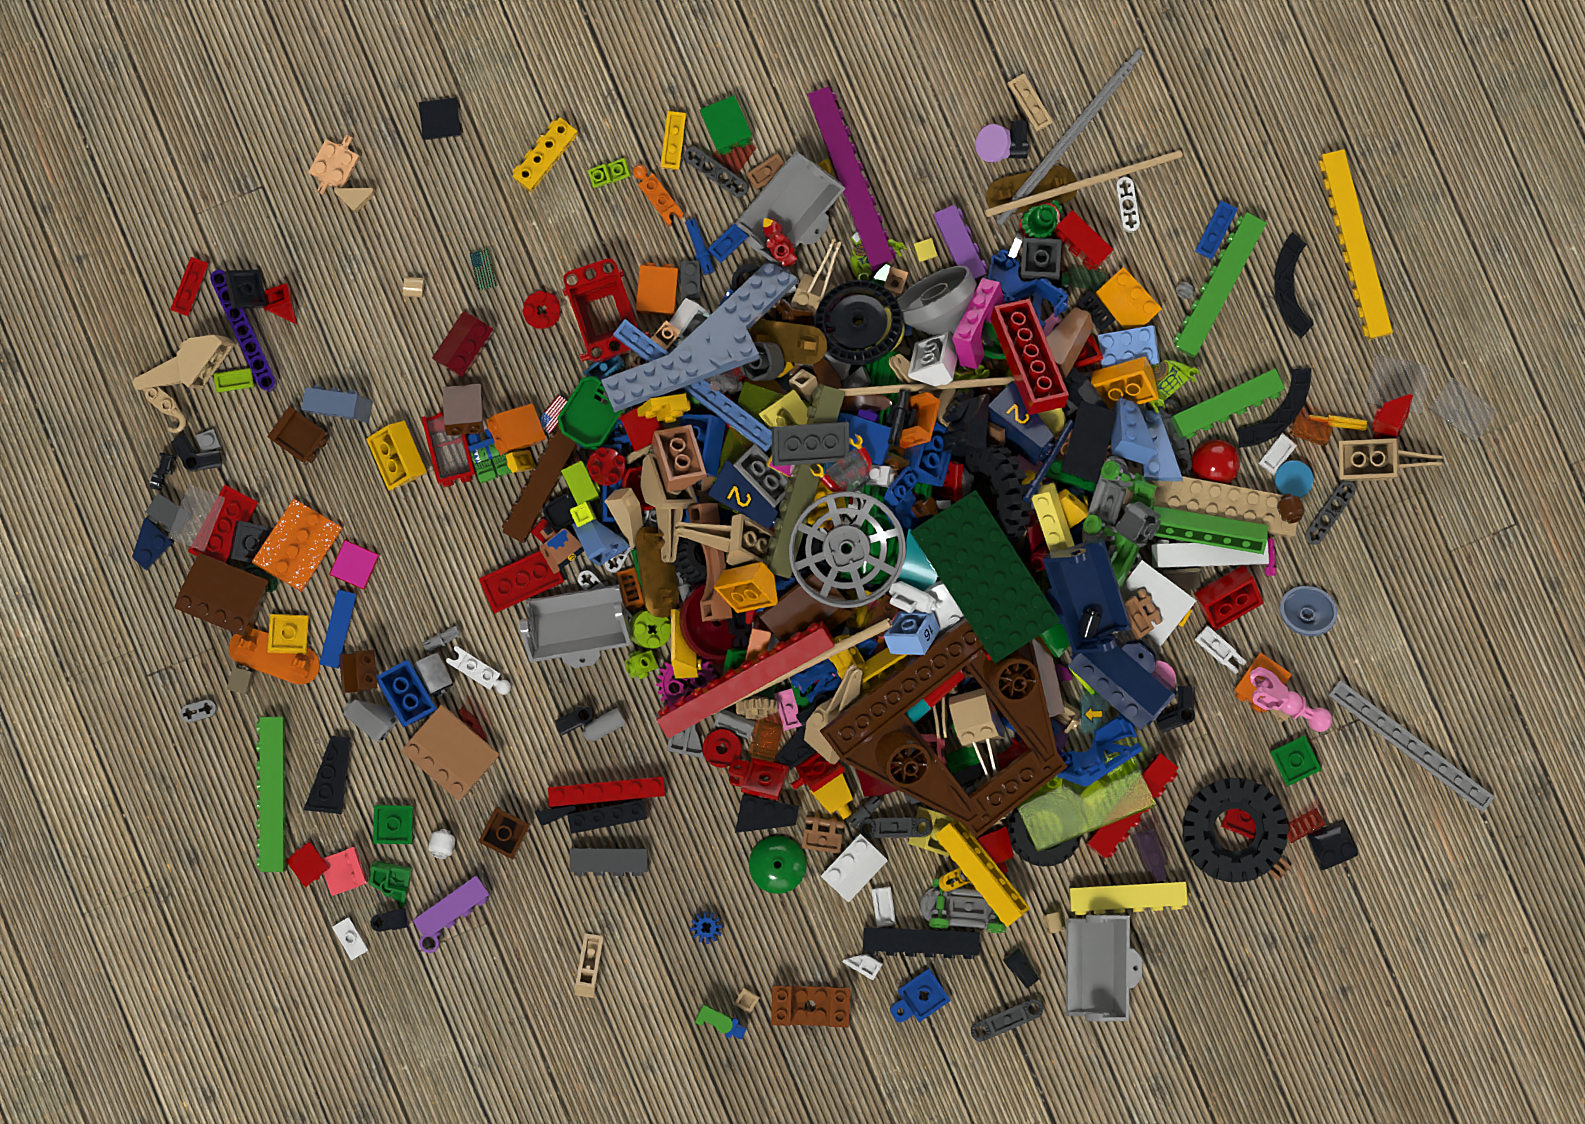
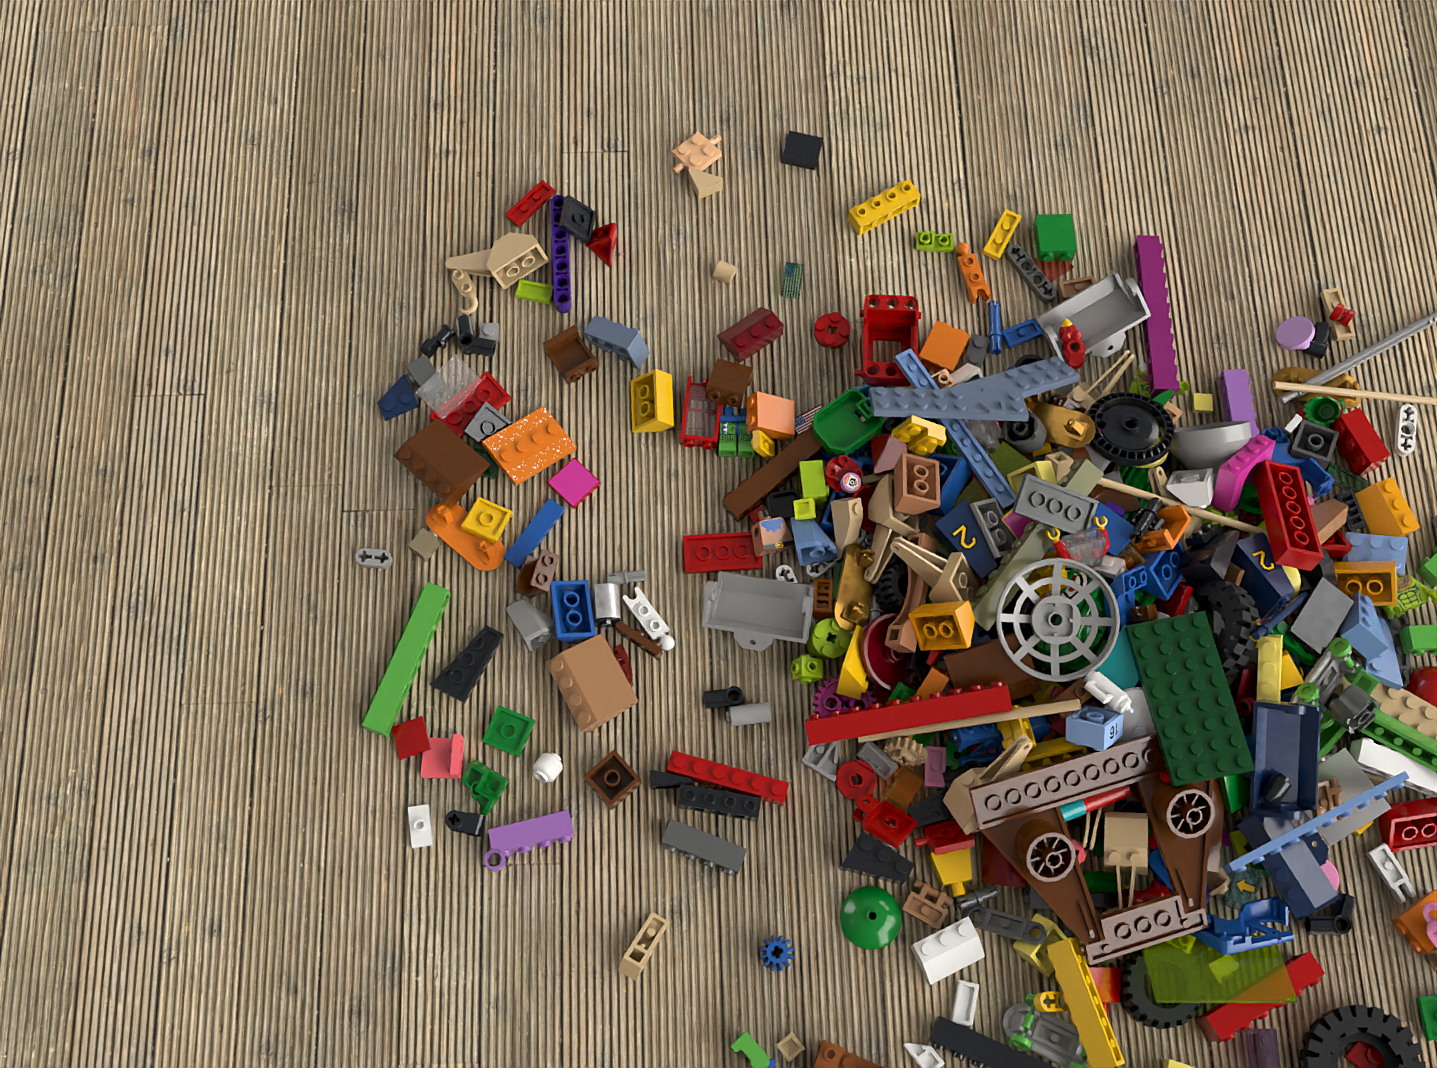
camera: 20 degrees right, 15 degrees down
(474, 692) = (638, 638): none -> reddish brown hinge
(616, 474) = (850, 482): none -> tile
(1036, 110) = (1345, 317): none -> red wheel
(1127, 648) = (1310, 827): none -> medium blue plate

